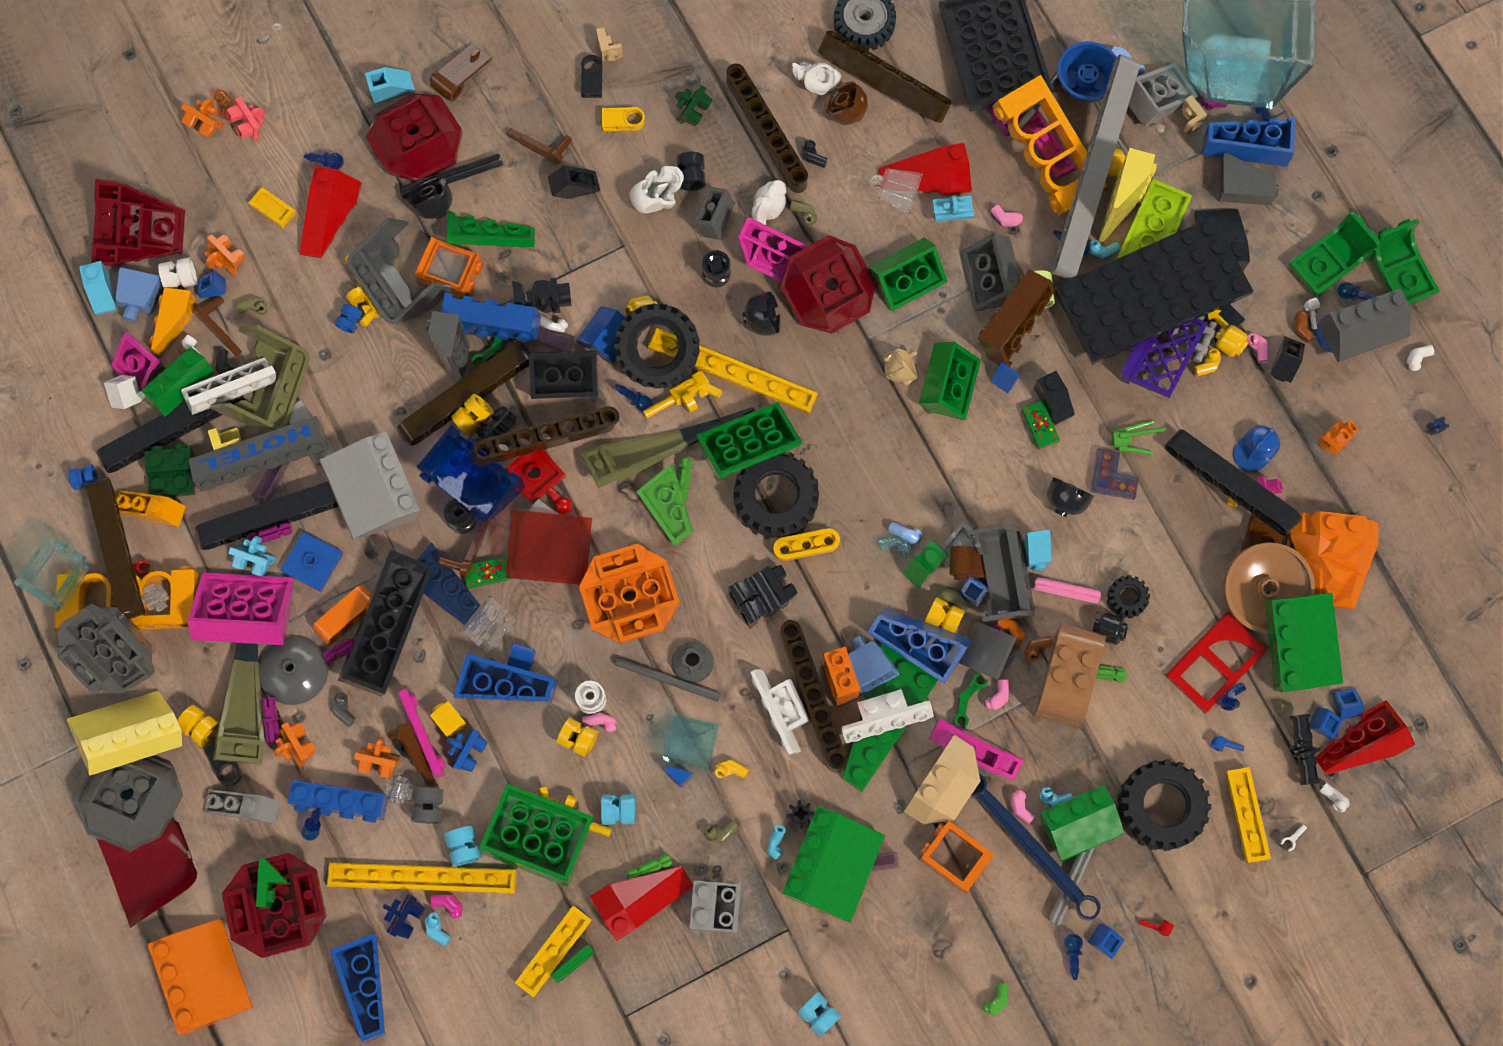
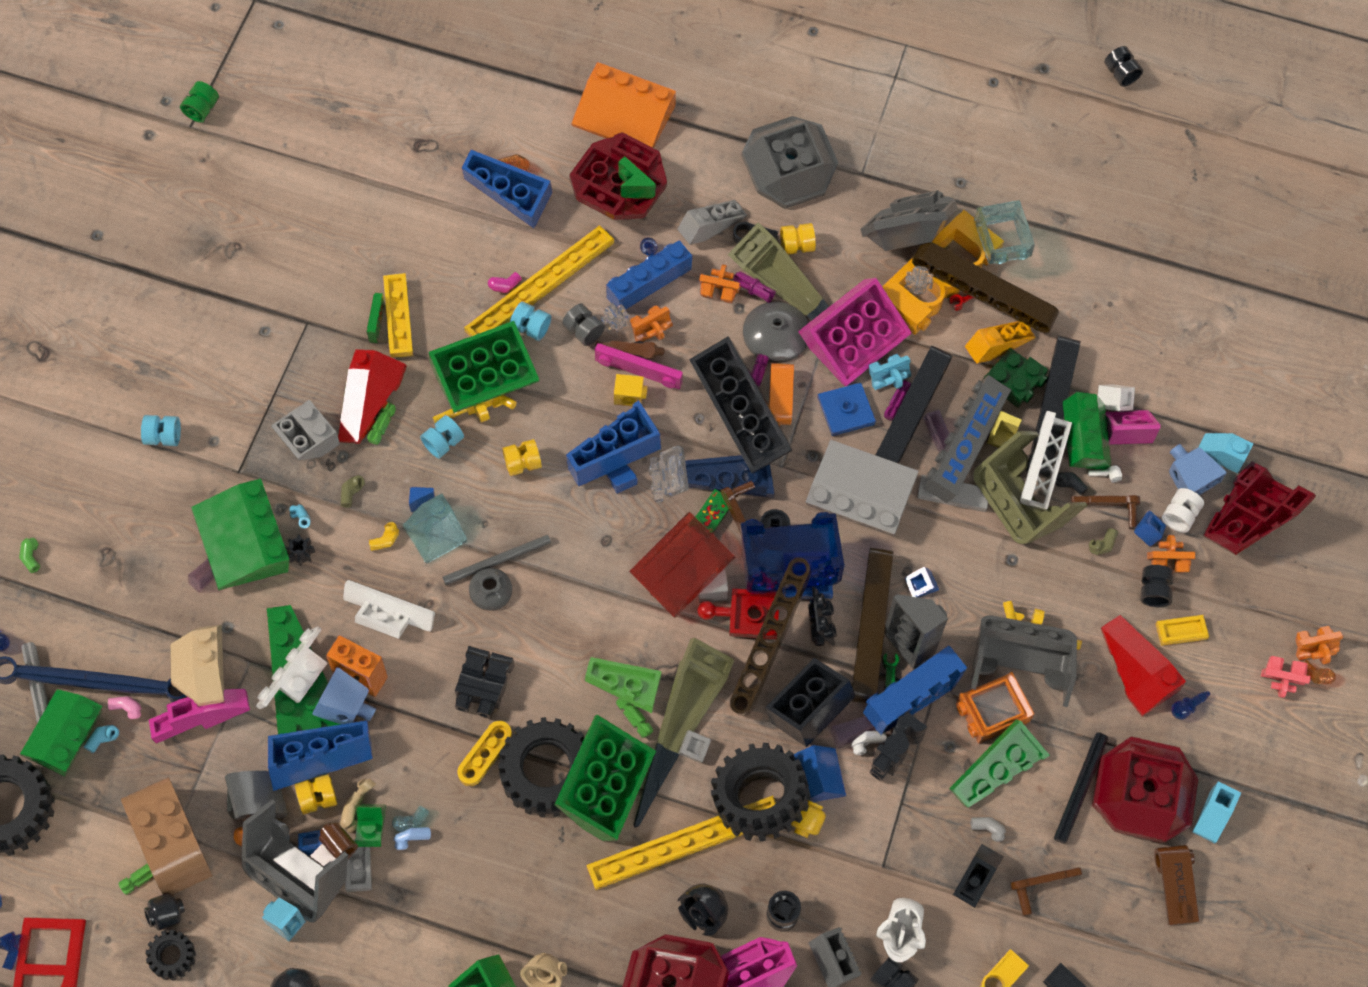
camera: 135 degrees right, 10 degrees down
(81, 477) = (1068, 319): blue wheel -> none
(125, 732) = (838, 186): light yellow slope -> none
(150, 873) = (719, 135): dark red piece -> none
(174, 314) = (1148, 479): light orange slope -> none
(256, 243) = (1156, 586): none -> black wheel
(331, 1012) = (517, 161): none -> clear orange arm
(340, 708) = (714, 334): dark grey arm -> none
(348, 318) = (1023, 597): blue wheel -> none
(398, 924) = (530, 248): clear blue hips -> none
(401, 393) = (921, 582): none -> slope
(431, 199) = (1070, 745): black cylinder -> none
(433, 929) = (497, 261): medium azure arm -> none
(461, 759) = (598, 380): blue hips -> none
(471, 421) = (846, 608): yellow wheel -> none
(532, 199) = (991, 825): none -> light grey arm
(590, 697) = (539, 491): white wheel -> none
(600, 719) = (521, 484): bright pink arm -> none
(622, 572) = (580, 560): orange piece -> none
(640, 401) = (728, 746): clear blue bar -> none
(666, 421) = (694, 746): none -> light grey plate
(684, 394) = (699, 802): yellow piece -> none
(813, 684) = (381, 645): dark brown beam -> none
(933, 586) = (349, 810): none -> tan arm
(954, 597) = (331, 815): olive arm -> none
(964, 697) = (245, 749): green piece -> none
(976, 870) = (145, 643): orange window -> none
(1001, 697) = (214, 775): bright pink arm -> none
(1034, 647) = (219, 842): dark orange arm -> none
(1067, 590) = (230, 914): bright pink axle -> none

